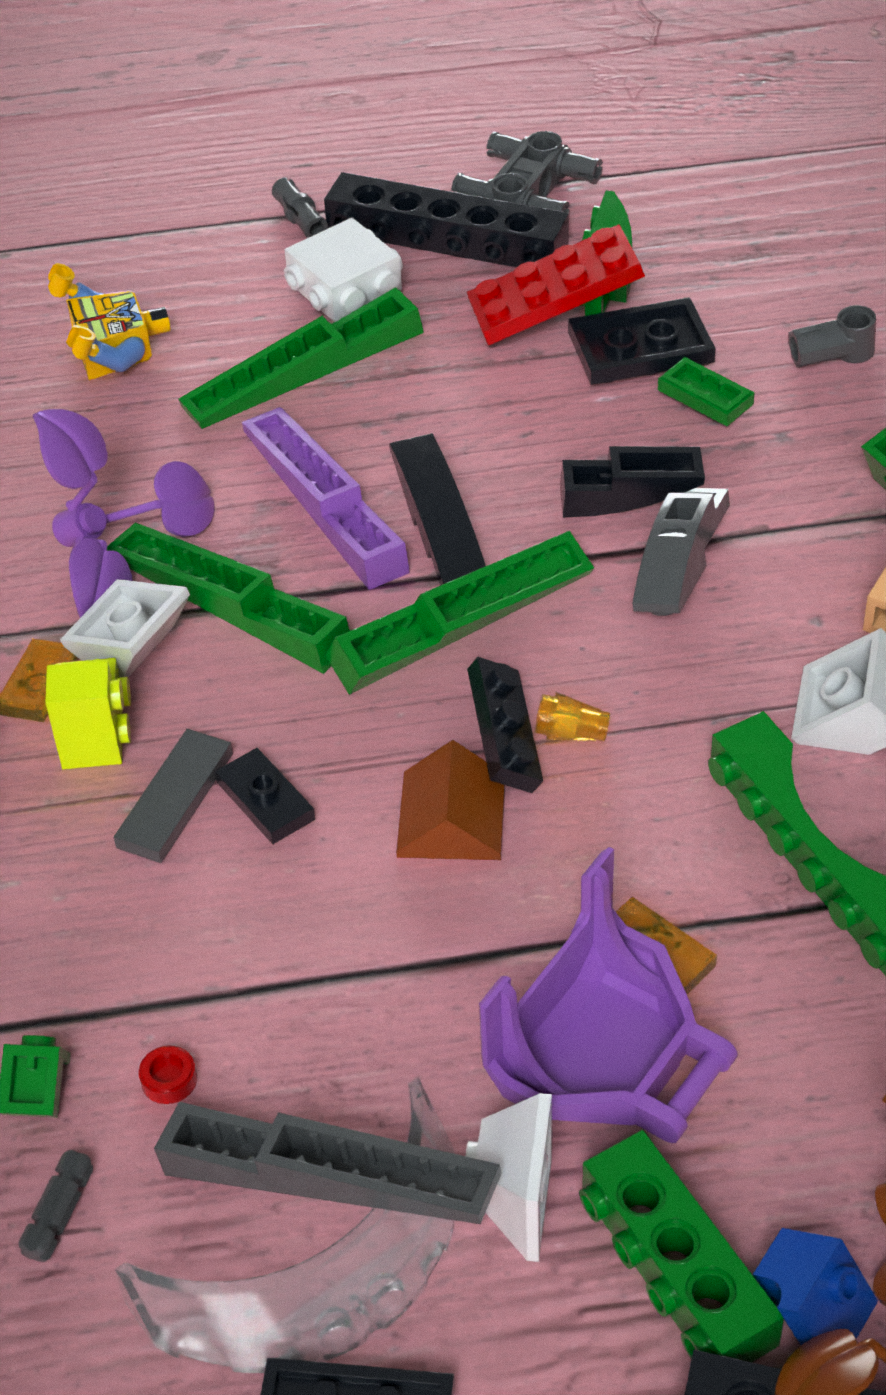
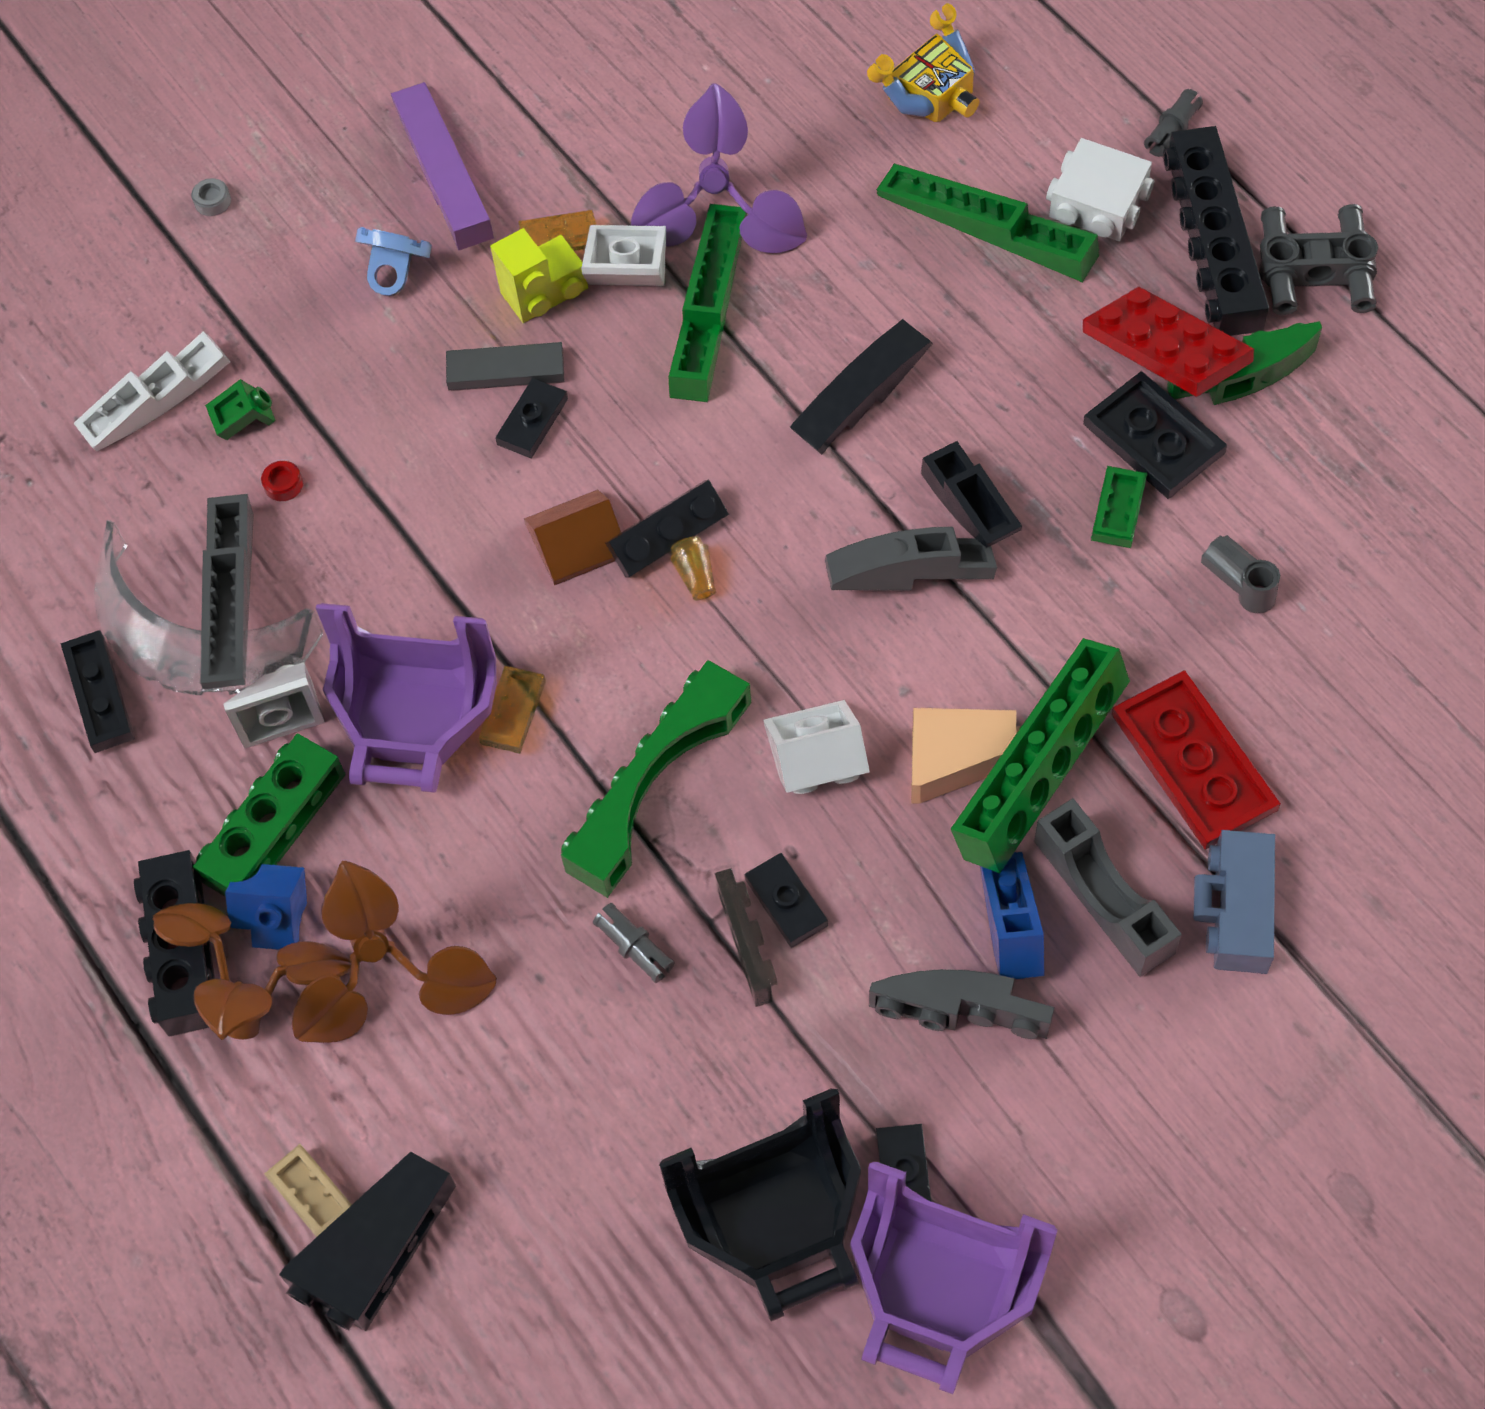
camera: 65 degrees right, 15 degrees up
(55, 1206) = (161, 472): dark grey axle -> none
(329, 498) = (843, 309): medium lavender slope -> none
(455, 611) = (769, 450): green slope -> none

